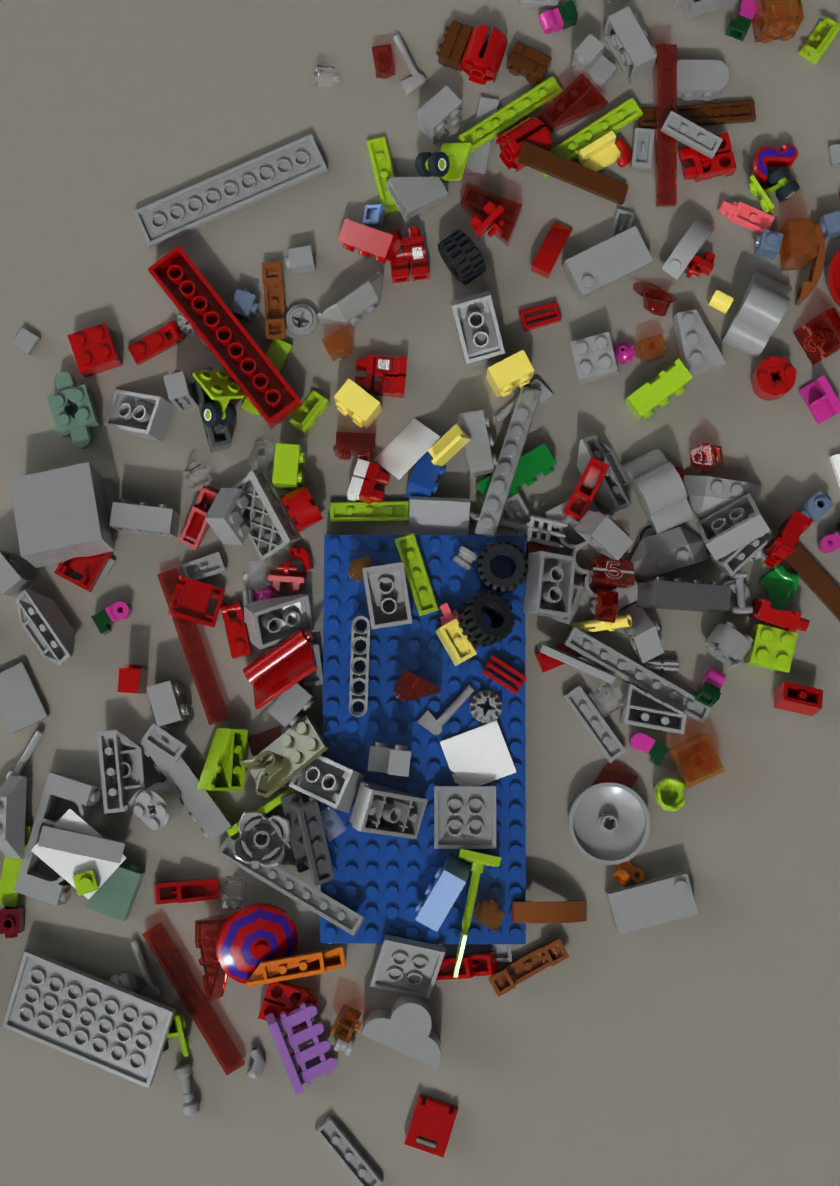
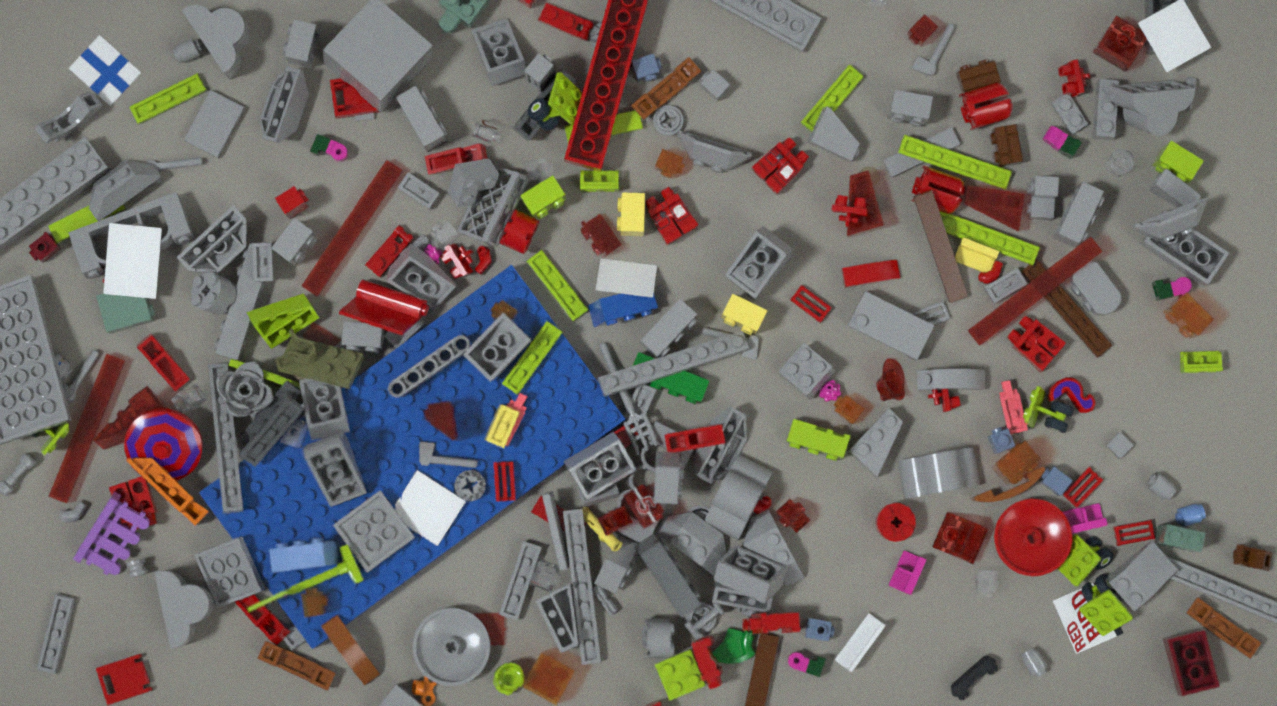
camera: 50 degrees right, 0 degrees up
(81, 843) = (141, 257): light grey tile -> none
(85, 882) = (115, 281): lime plate -> none
(192, 601) = (385, 202): red container -> none
(346, 1023) = (153, 557): clear orange brick -> none
(365, 481) = (576, 265): red hips -> none
(369, 241) = (766, 128): brick -> none
(374, 215) = (793, 114): medium blue tile -> none
(389, 760) = (375, 442): light grey brick -> none
(439, 516) = (592, 342): light grey tile -> none
(446, 164) = (877, 143): plate -> none
(449, 445) = (649, 308): light yellow panel -> none
(462, 257) = (807, 209): black tyre -> none
(465, 558) = (571, 385): light grey wheel -> none
(499, 613) = (548, 442): black tyre -> none
(512, 551) = (598, 430): black tyre -> none
(645, 743) = (534, 634): leg -> none
(691, 134) = (1039, 316): light grey plate -> none
(711, 687) = (615, 649): leg -> none
(720, 301) = (926, 437): light yellow brick -> none

